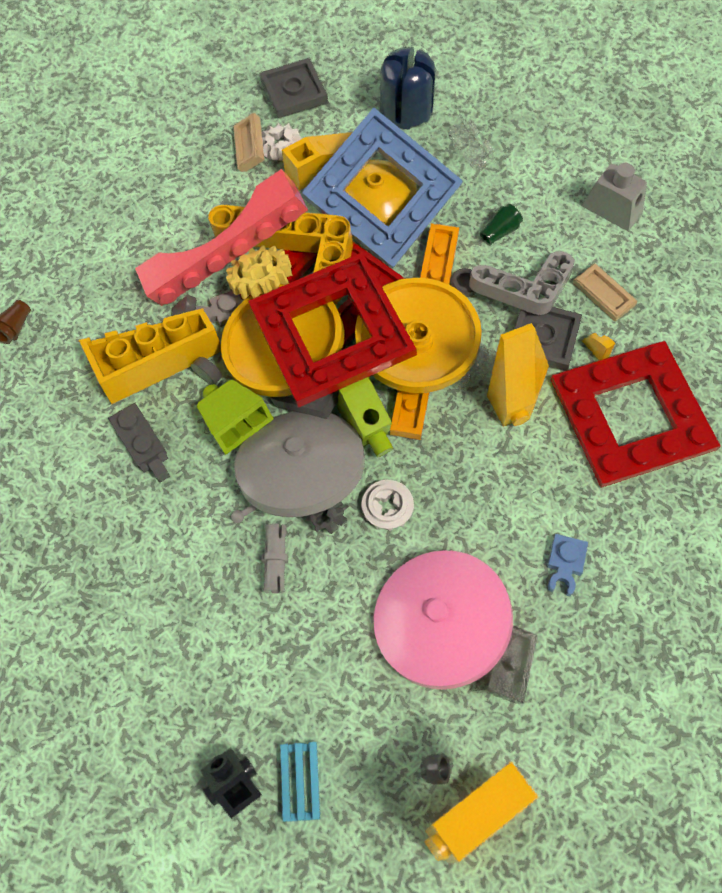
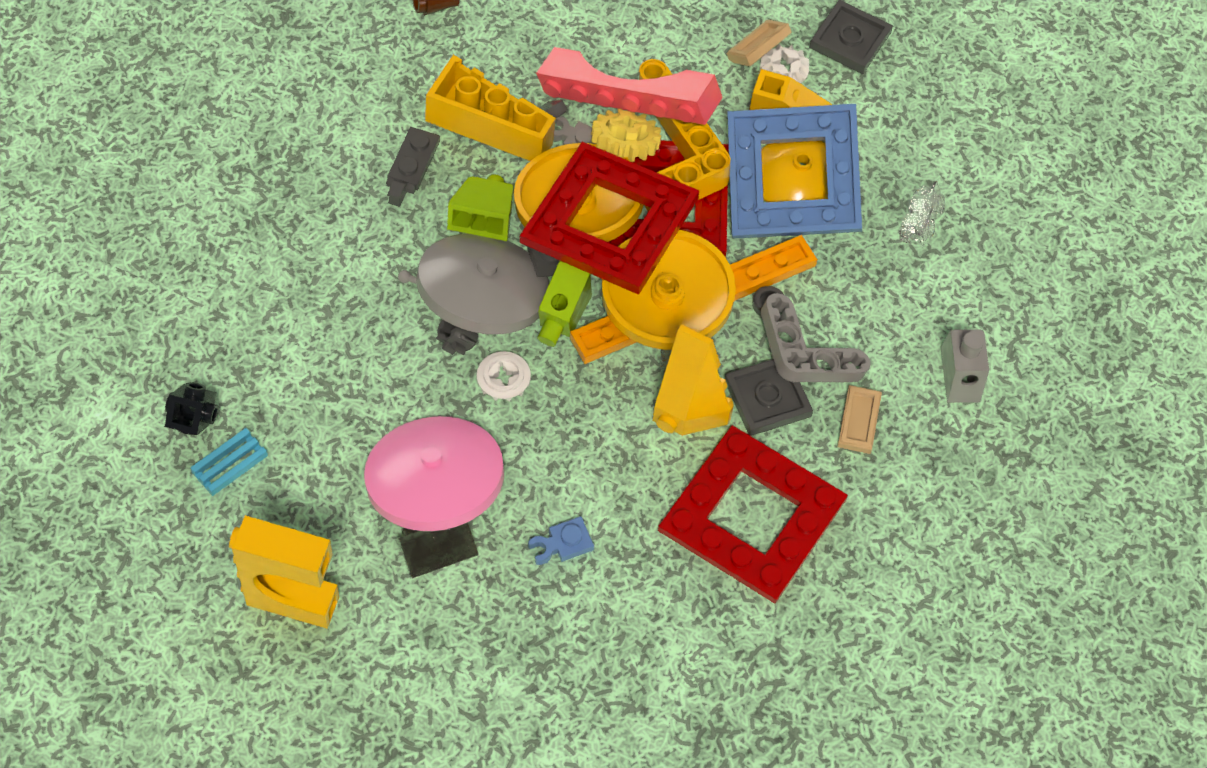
camera: 45 degrees right, 5 degrees down
(206, 370) = (510, 164): dark grey tile -> none
(274, 558) = (389, 324): light grey pin -> none
(407, 87) = (923, 121): dark blue cylinder -> none
(504, 222) = (855, 292): dark green cone -> none
(599, 346) = (795, 445): yellow tile -> none

